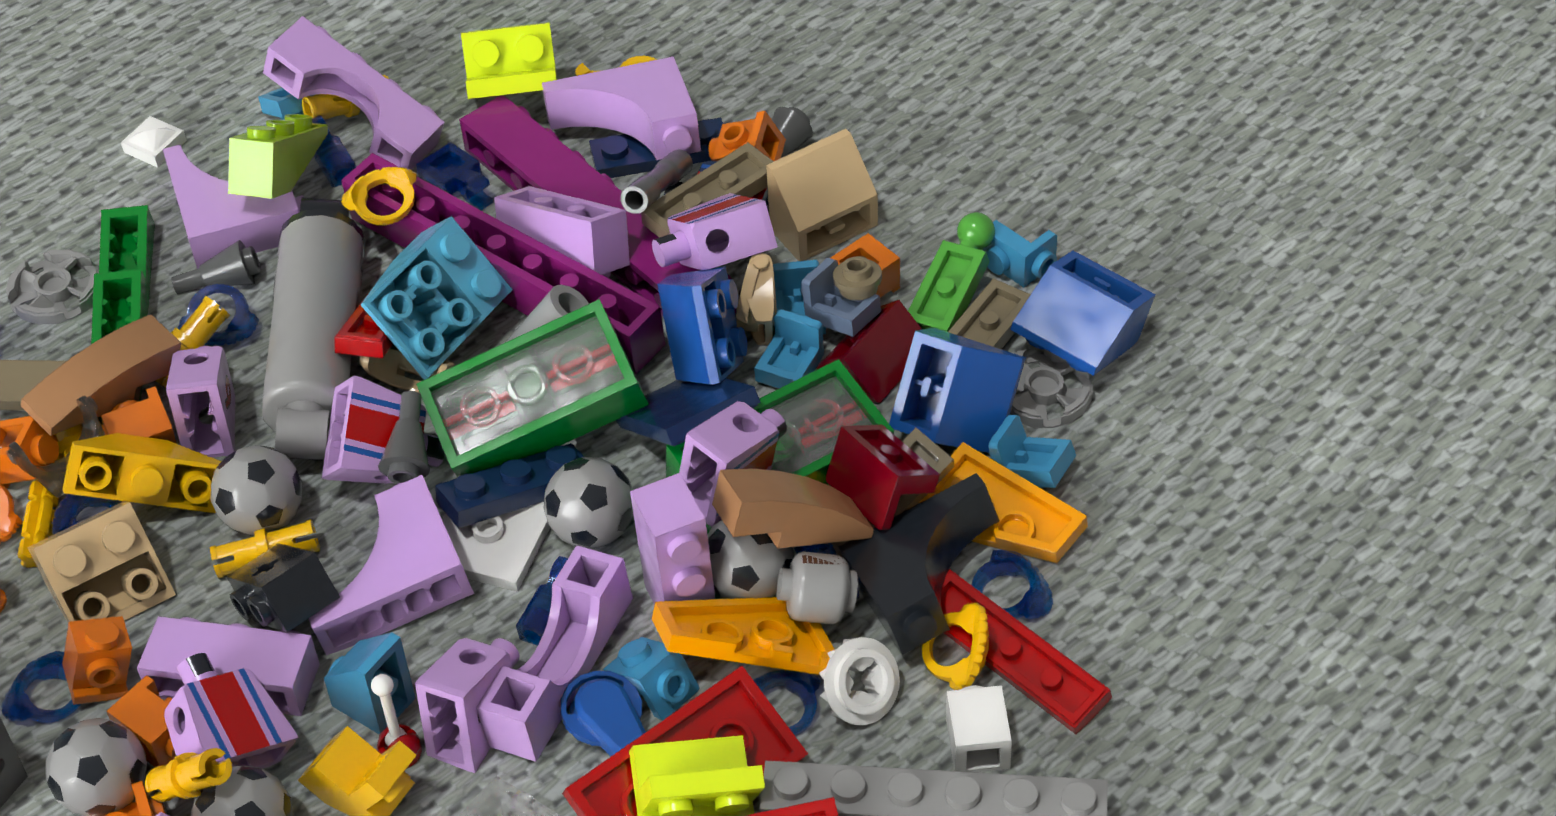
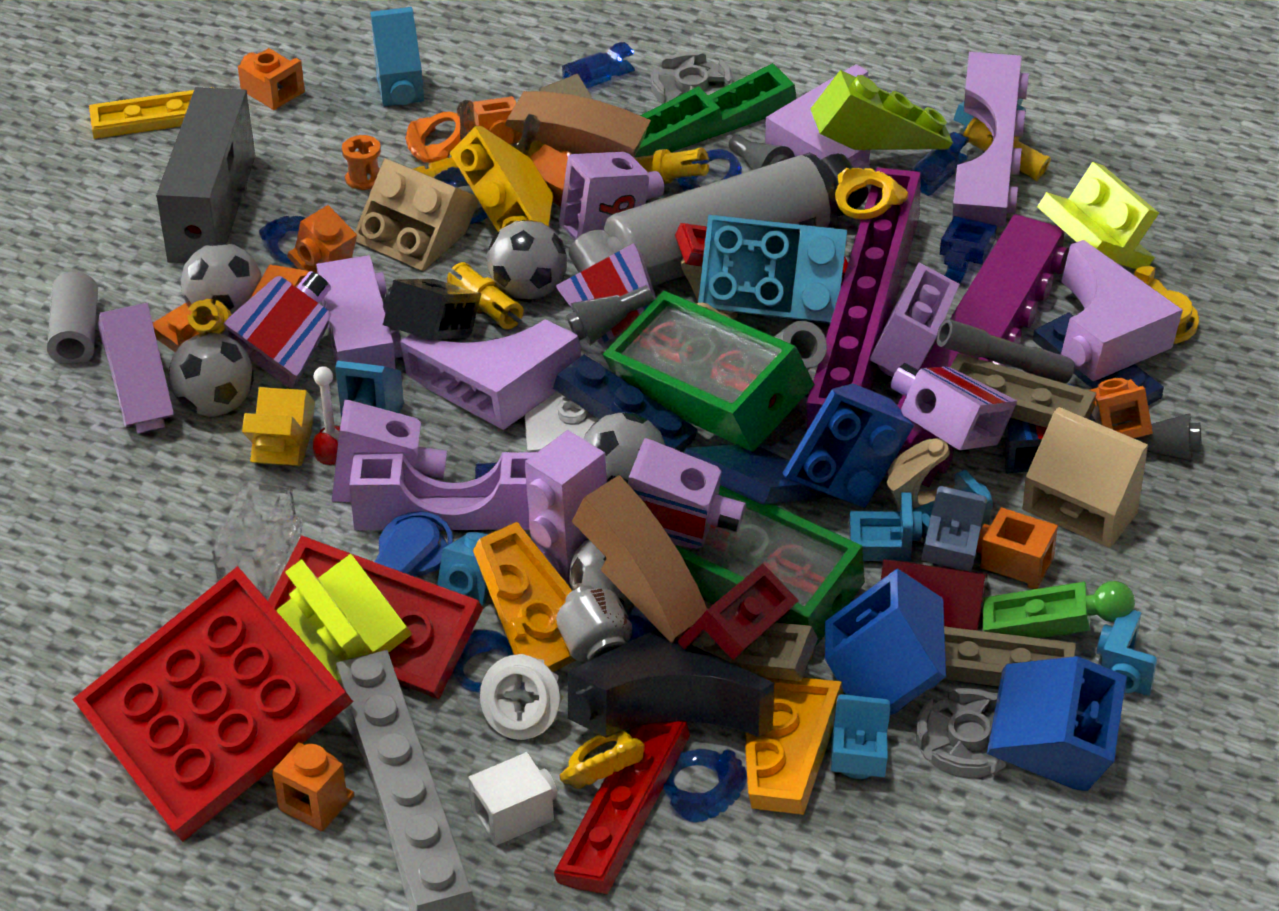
camera: 65 degrees right, 5 degrees down
(150, 139) = (886, 66): white tile -> none
(857, 278) = (979, 529): dark tan plate -> none

